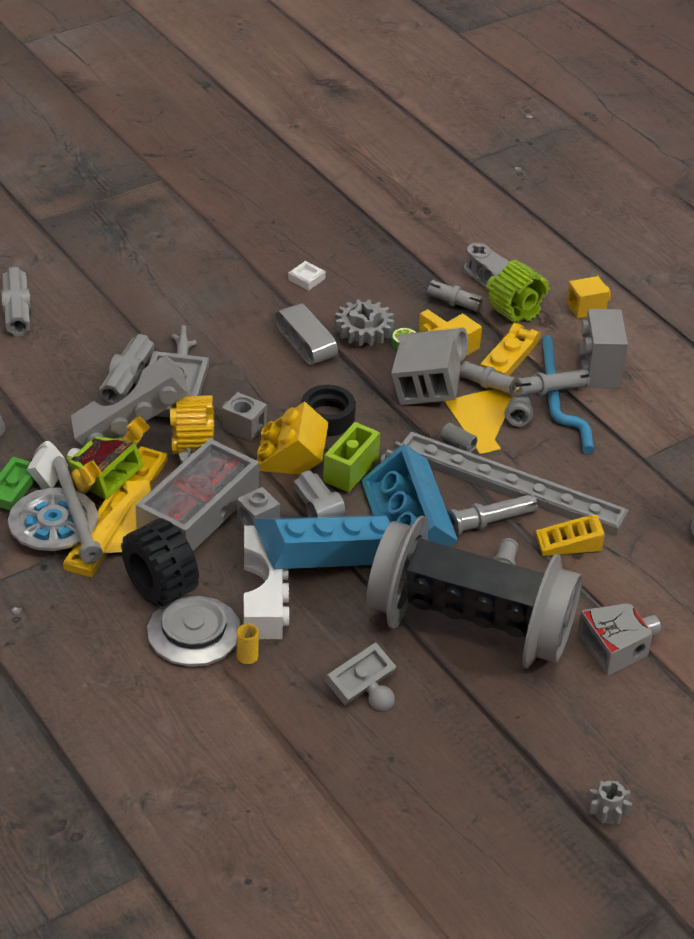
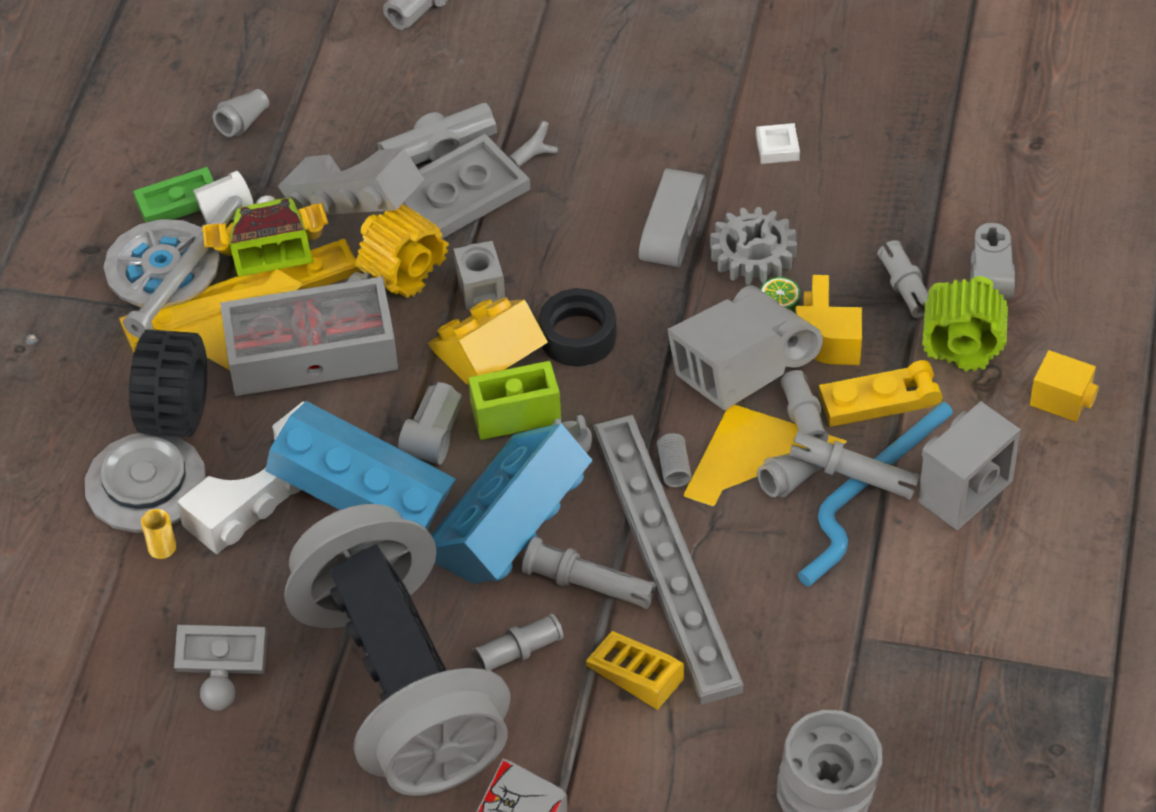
camera: 50 degrees right, 10 degrees up
(255, 506) = (347, 394): light grey brick -> none

